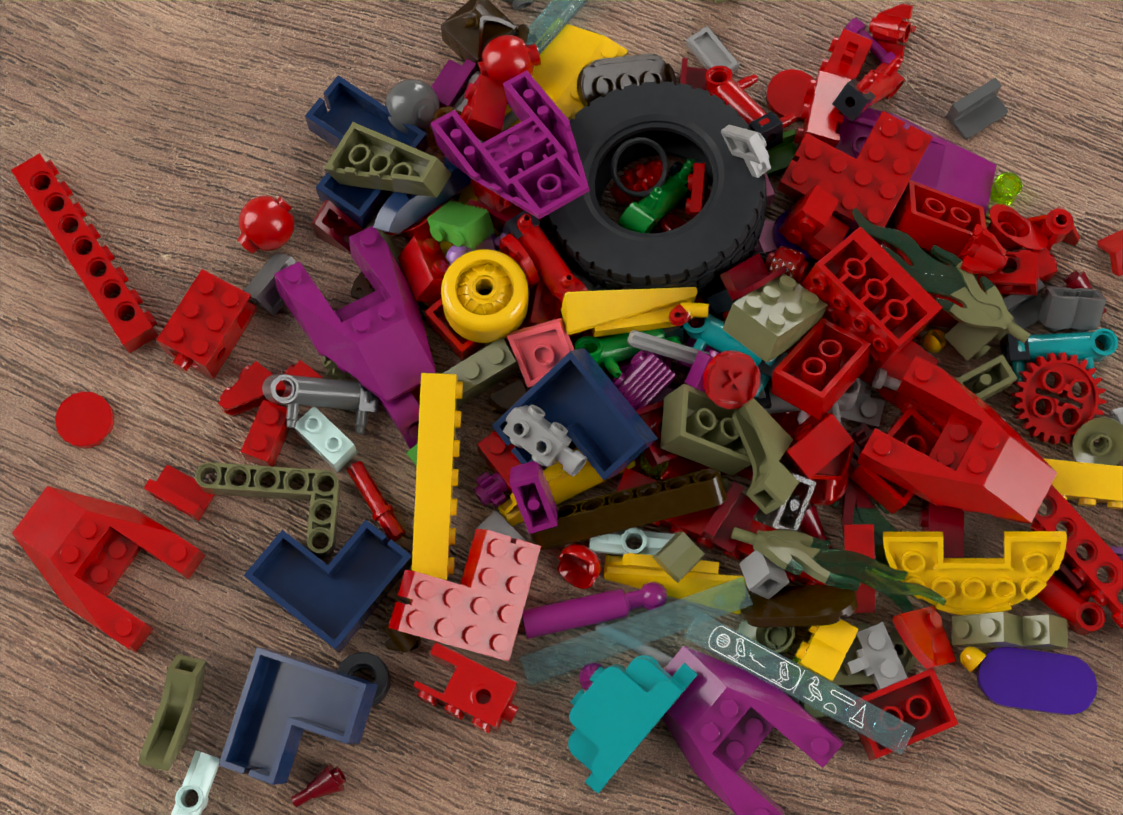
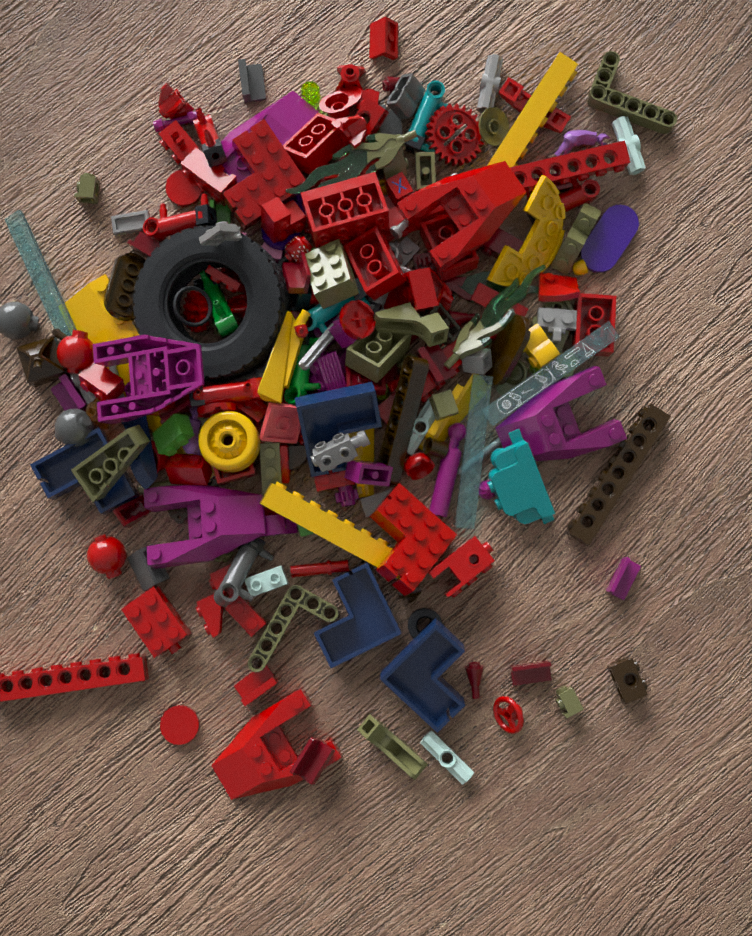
camera: 60 degrees left, 10 degrees up
(106, 608) = (312, 760): none -> dark red panel
(482, 394) = (284, 456): none -> red tile
(614, 575) = (435, 448): none -> dark brown beam
(944, 352) = (398, 188): none -> red brick

